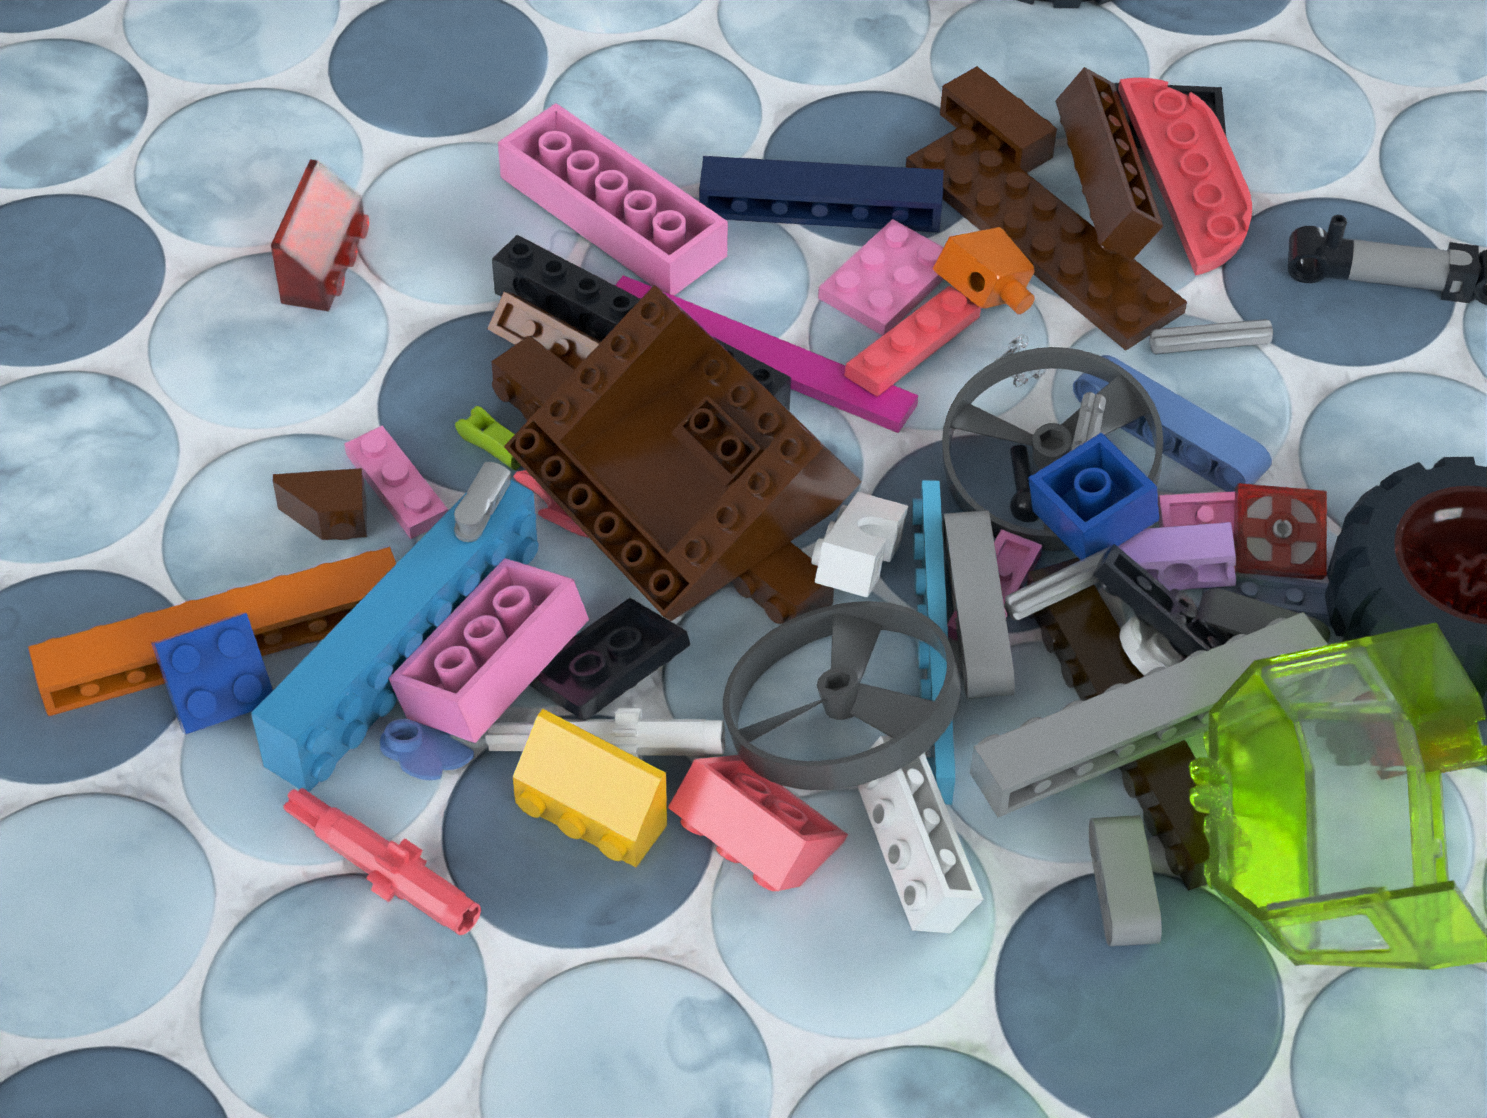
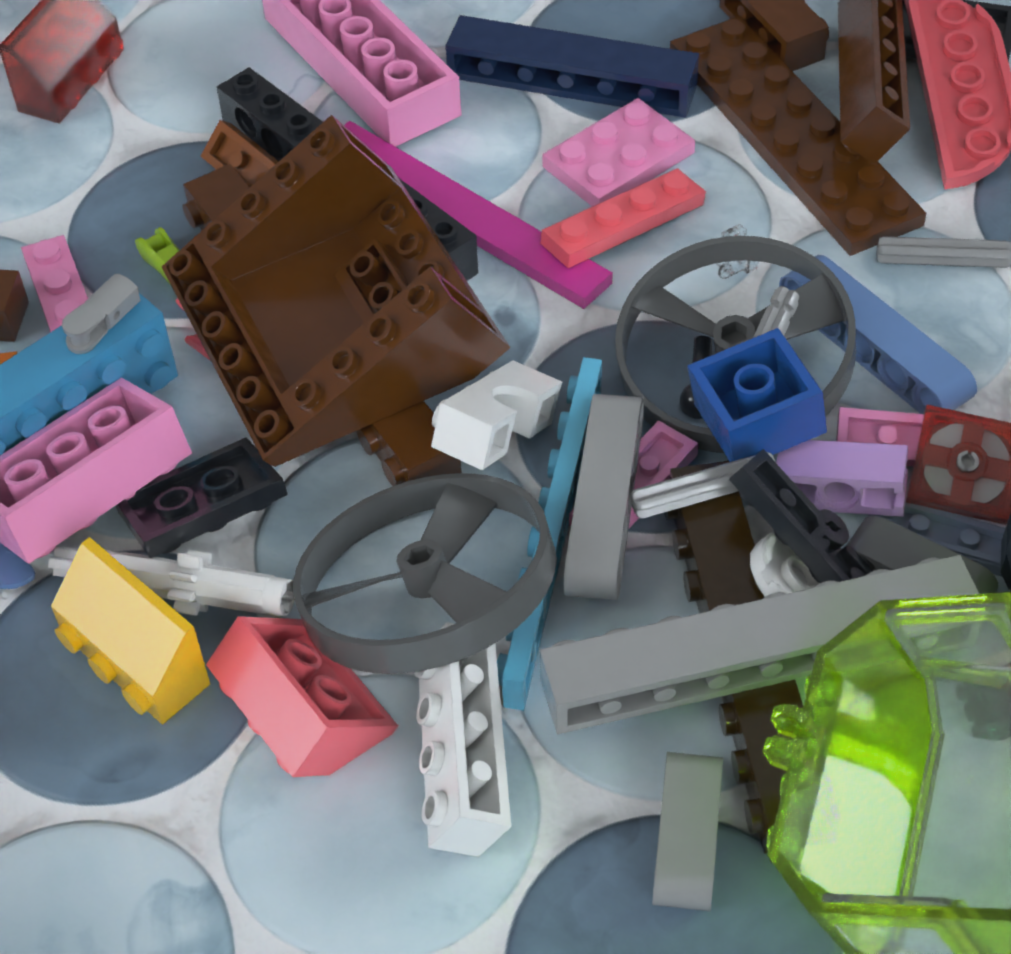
camera: 15 degrees right, 0 degrees up
(987, 269) = (717, 154): orange torso -> none

